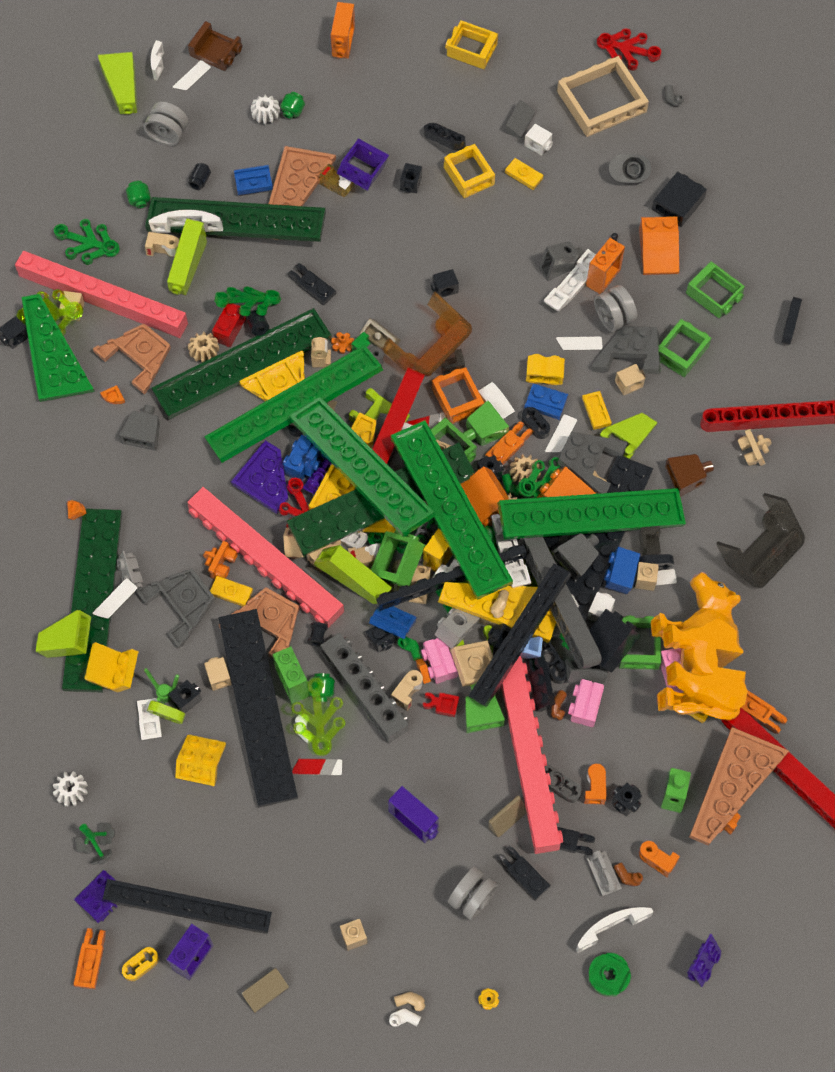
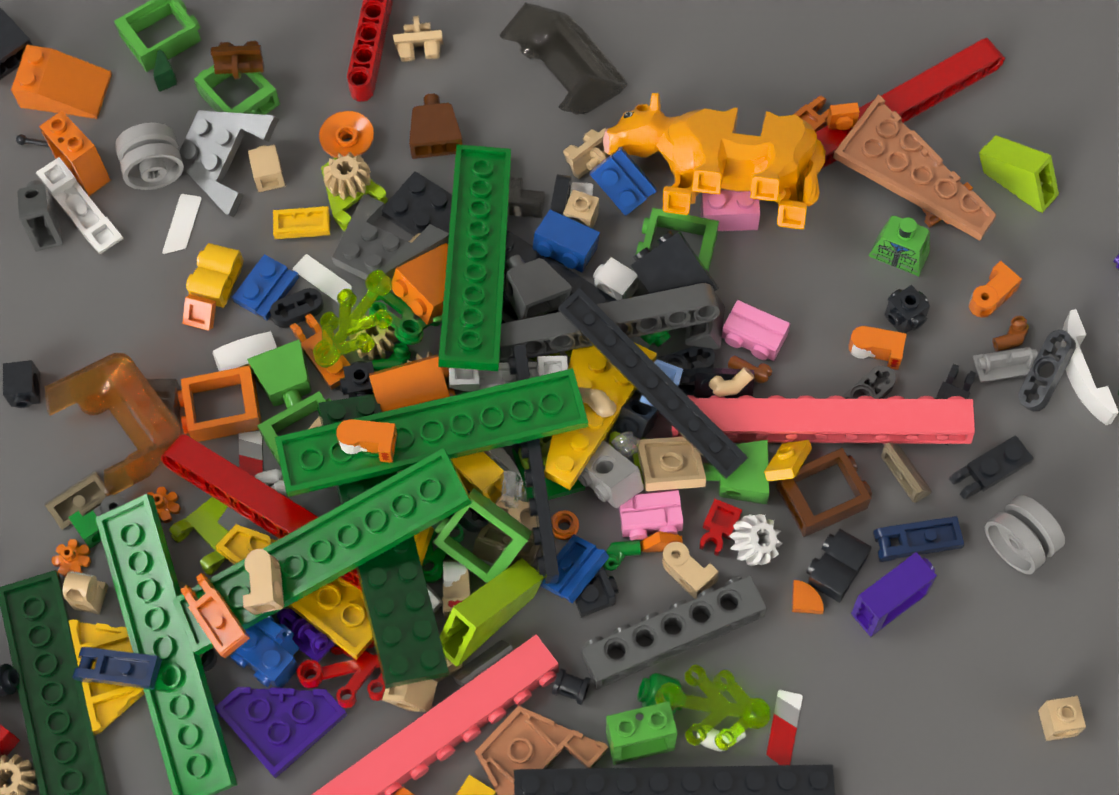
camera: 75 degrees left, 0 degrees up
(275, 381) = (118, 668): none -> dark blue plate
(310, 418) = (215, 617): none -> orange hinge
(333, 438) = (264, 583): none -> tan leg
(386, 381) = (166, 503): none -> orange plant
(404, 765) = (806, 599): none -> orange tile
(423, 605) = (568, 517): none -> orange plate
(430, 781) = (838, 565): none -> black brick
(431, 568) = (512, 489): none -> clear plate
(431, 719) = (755, 539): none -> white gear
(434, 475) = (368, 437): none -> orange leg
(461, 831) = (919, 537): none -> dark blue plate
(467, 748) = (798, 506): none -> reddish brown window
(480, 632) = (626, 444): none -> clear plate
(494, 735) = (788, 460): none -> yellow plate
(507, 446) = (332, 347): none -> clear neon green plant
(517, 367) = (199, 312): none -> plate
(537, 692) = (733, 386): none -> tan arm
(616, 901) = (1029, 385): none -> black beam
(634, 427) = (347, 175): none -> tan gear
(670, 414) = (343, 126): none -> orange dish
(675, 596) = (623, 181): none -> blue plate
(685, 301) = (163, 72): none -> dark green slope
(691, 567) = (588, 155): none -> tan hips
(697, 339) = (237, 59): none -> reddish brown hips
(759, 864) = (1021, 171): none -> lime slope
(763, 729) = (843, 116): none -> orange plate

